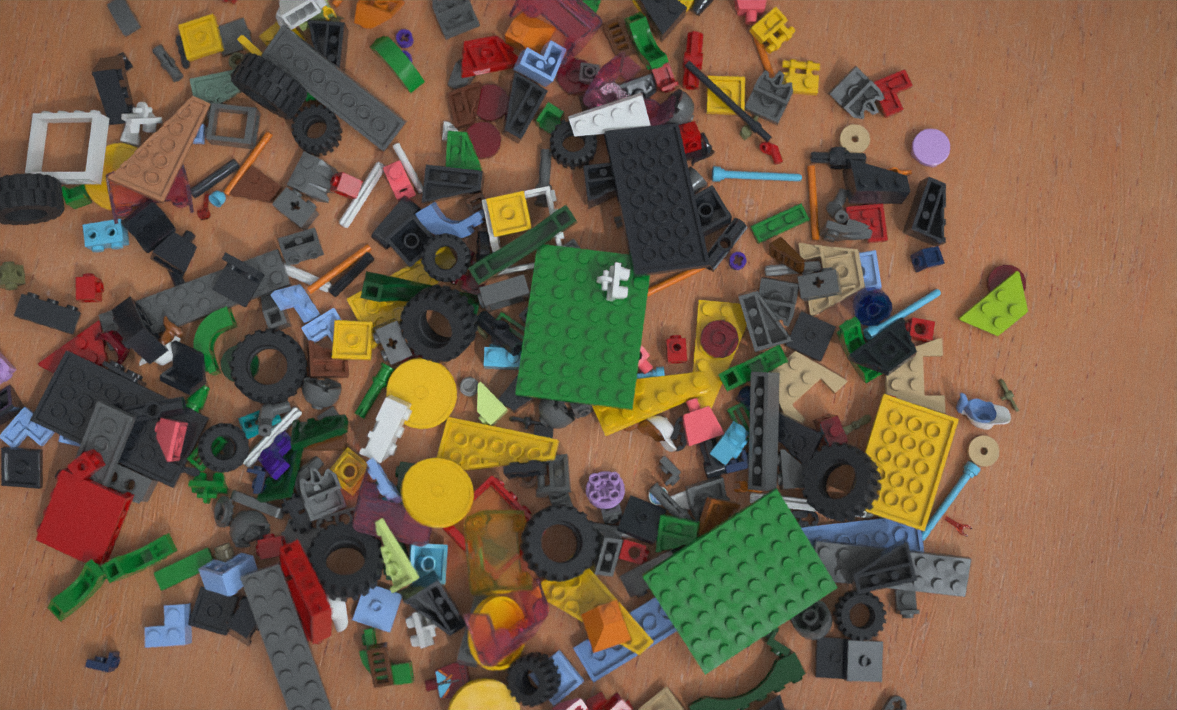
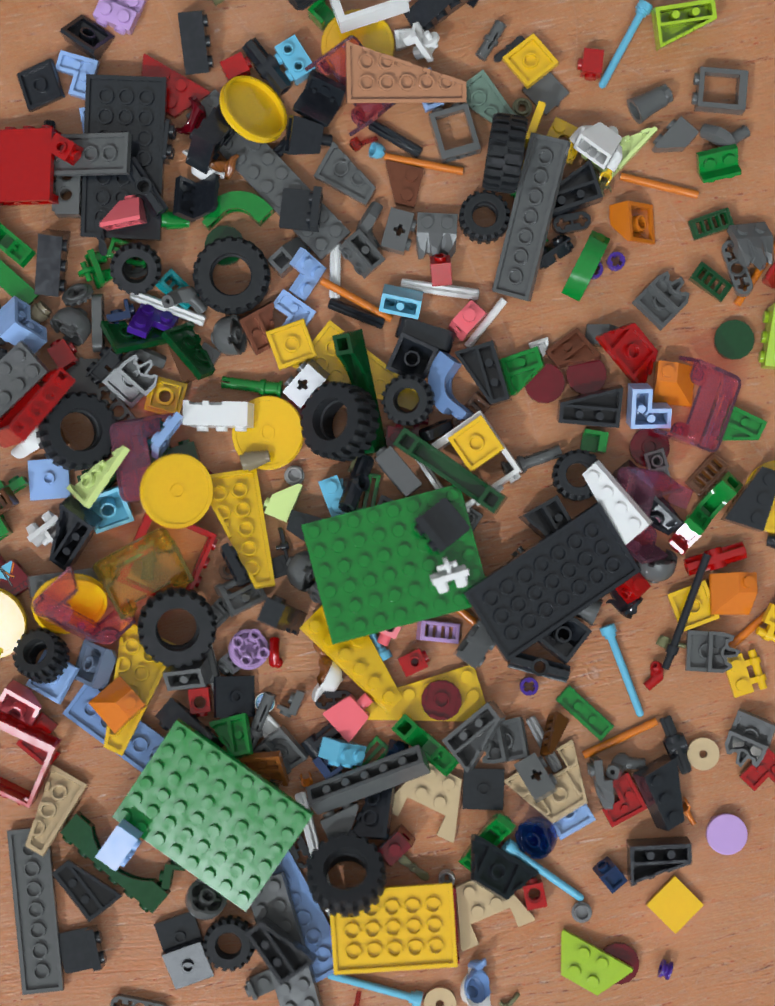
camera: 70 degrees right, 5 degrees up
(100, 261) = (266, 66): none -> black piece
(130, 286) = (253, 109): none -> yellow brick
(185, 523) = (51, 262): none -> black wedge
(227, 234) = (342, 175): none -> dark grey wing
(274, 229) = (368, 220): none -> dark grey arm
(351, 60) = (571, 217): none -> black beam
(358, 230) = (401, 301): none -> medium azure brick
(370, 78) = (559, 246): none -> black hinge
(439, 414) = (254, 459): none -> dark tan cone
(561, 633) = (95, 665): none -> sand blue slope
(568, 271) = (441, 526): none -> black bracket
(587, 446) = (281, 615): none -> black wedge
(623, 470) = (274, 659): none -> red arm
(652, 329) = (420, 635): none -> lavender slope
(683, 289) = (475, 646): none -> dark grey wedge
(728, 57) = (732, 593): none -> orange slope
(734, 676) = (120, 845): none -> light blue brick
(876, 395) = (451, 876): none -> light grey hinge
(950, 296) = (581, 912): none -> flat silver plate
(973, 215) = (674, 904): none -> yellow tile
(1027, 245) = (665, 969): none -> dark purple bush

